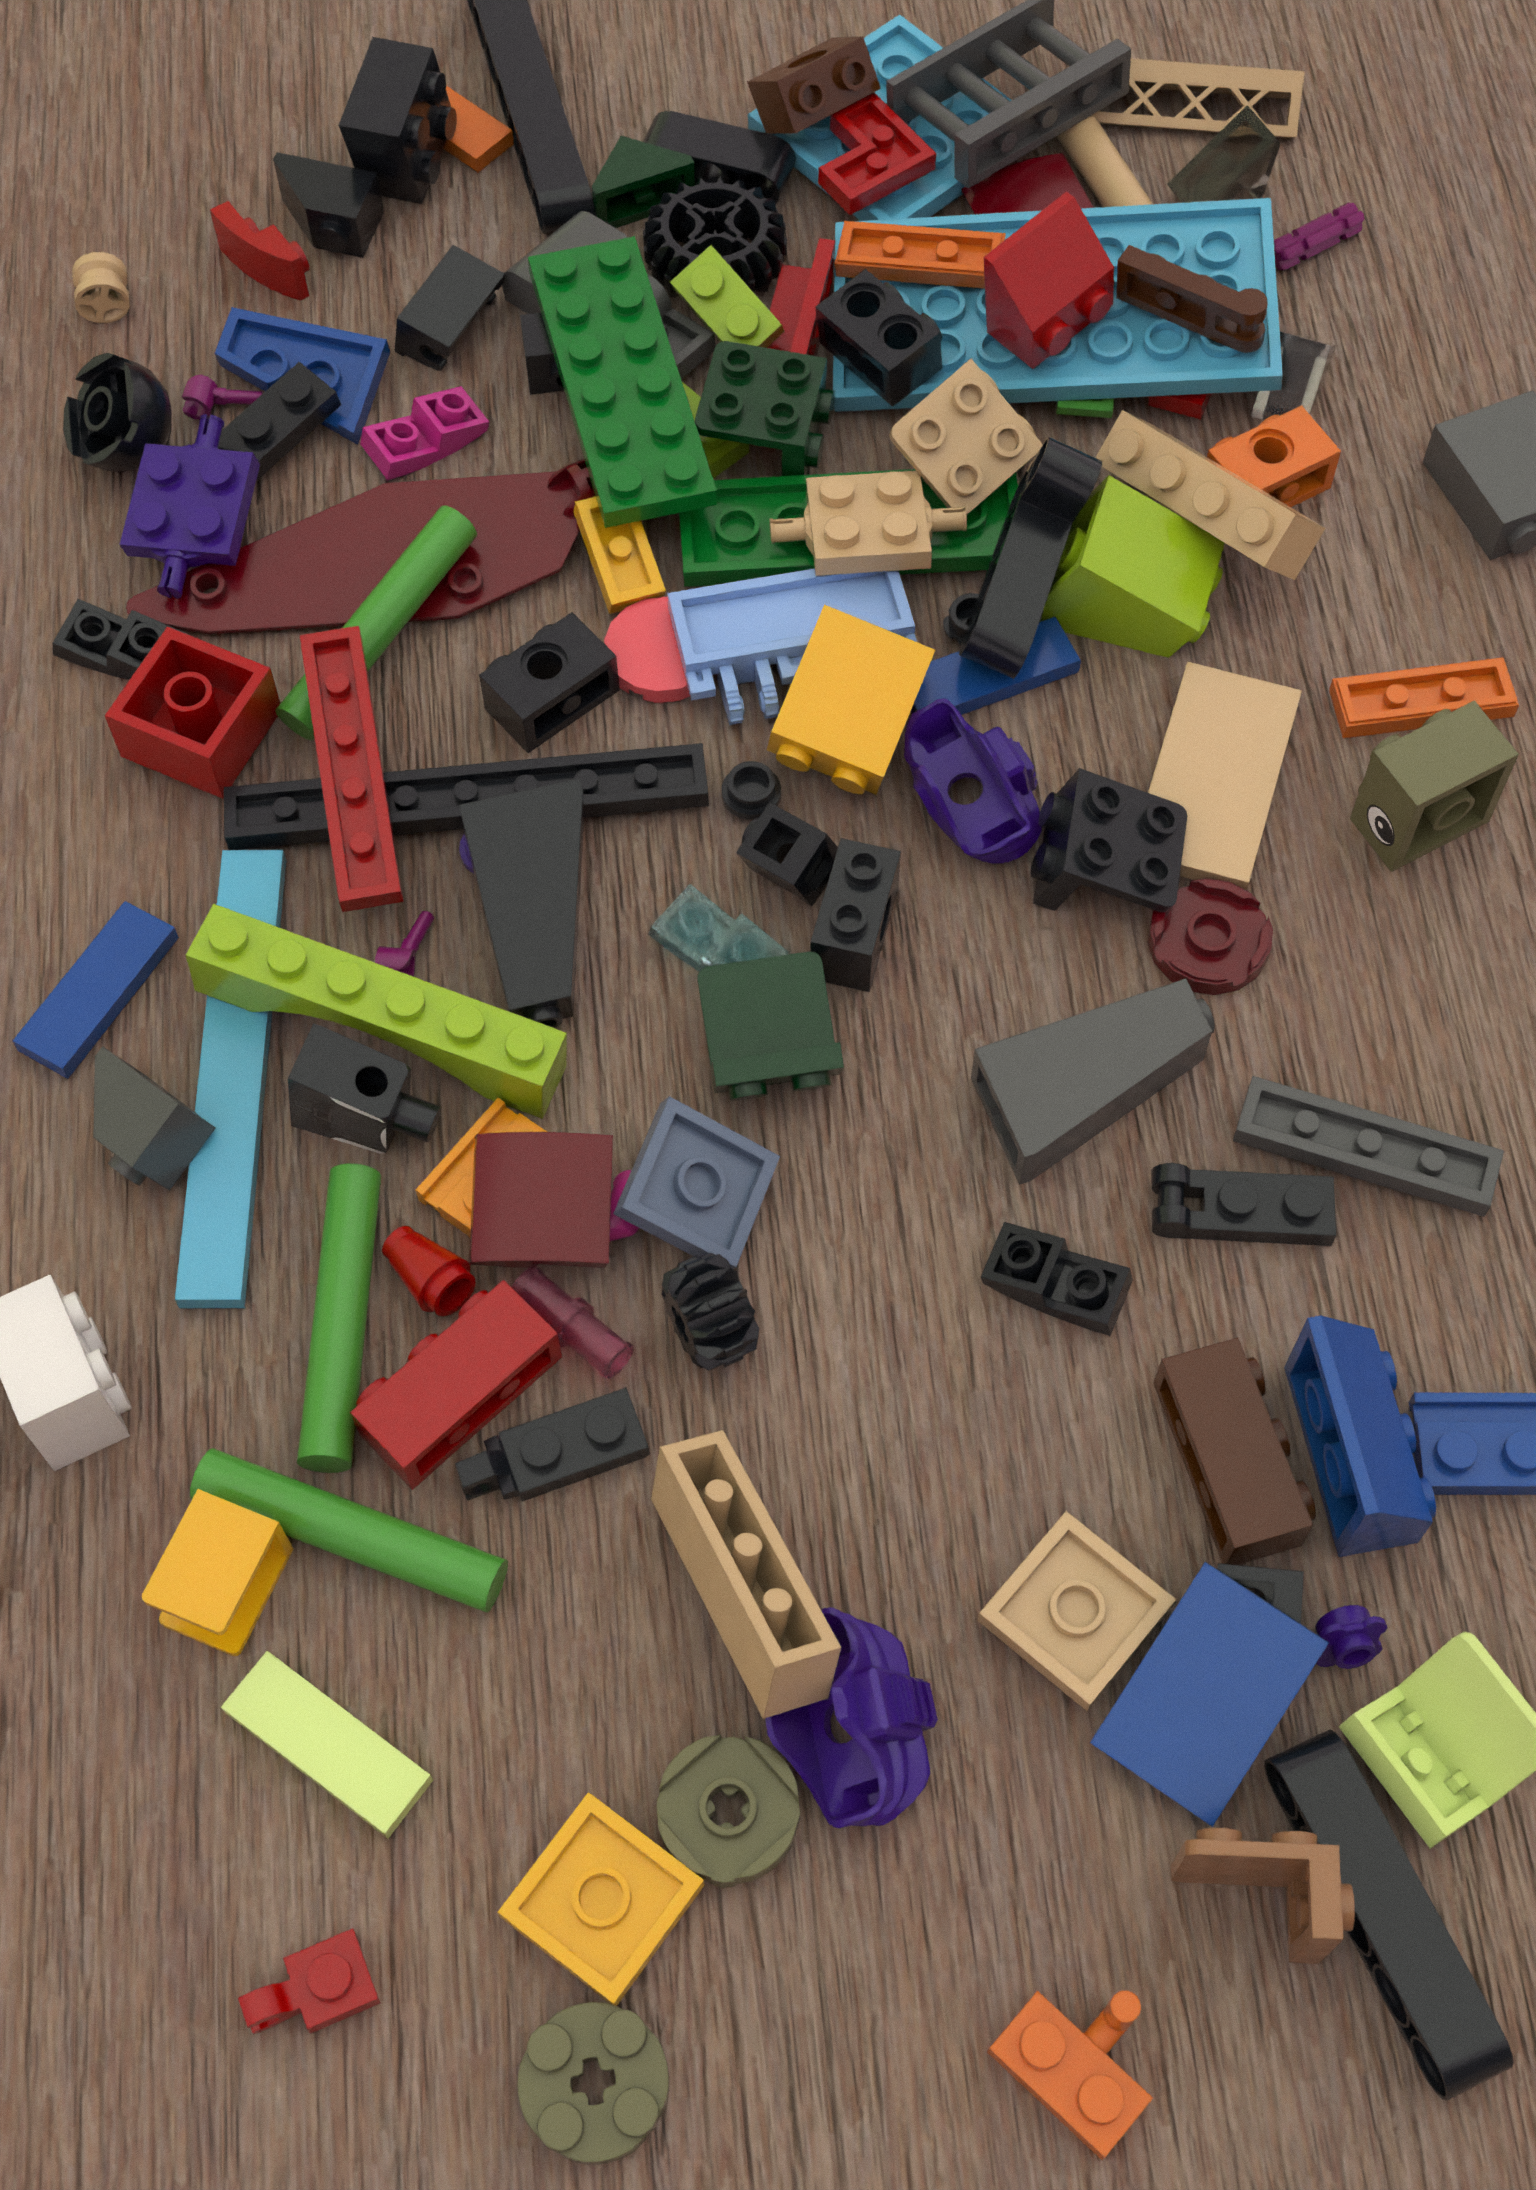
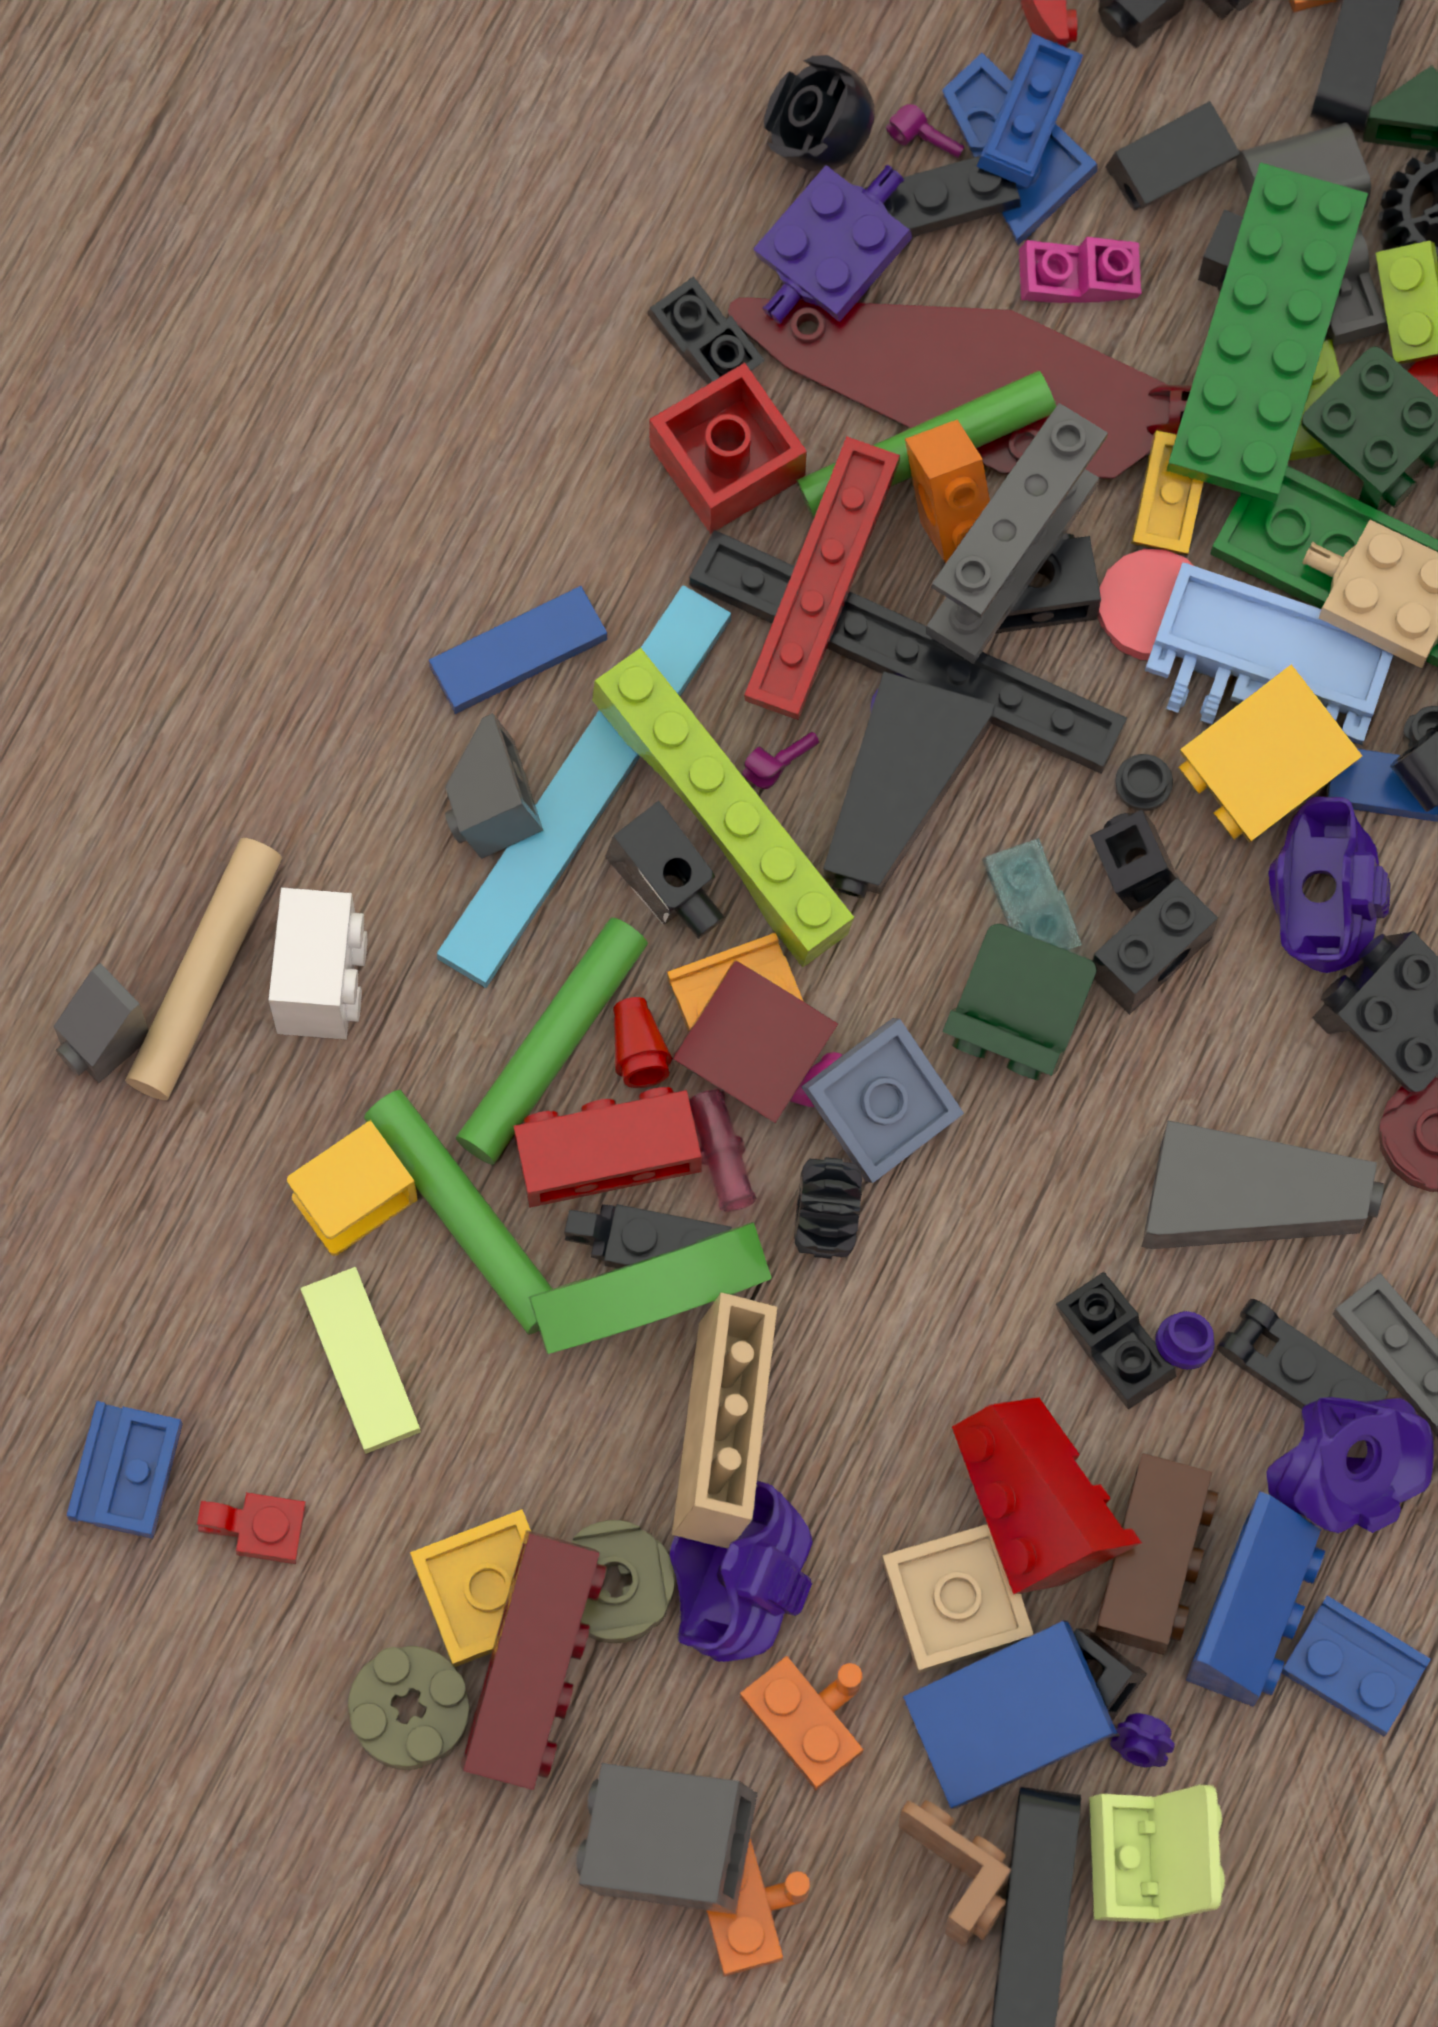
camera: 30 degrees right, 10 degrees up
(134, 2017) = (124, 1469): none -> blue plate
(302, 324) = (1030, 110): none -> blue tile
(423, 636) = (947, 484): none -> orange brick
(507, 621) = (1016, 533): none -> dark grey fence
(581, 1493) = (650, 1289): none -> bright green slope
(698, 1948) = (531, 1659): none -> dark red brick
(955, 2047) = (667, 1838): none -> dark grey brick
(1007, 1829) = (804, 1720): none -> orange plate
(1093, 1462) = (1036, 1496): none -> red wedge
(1121, 1238) = (1185, 1340): none -> dark purple plate
(1374, 1277) = (1350, 1491): none -> dark purple piece

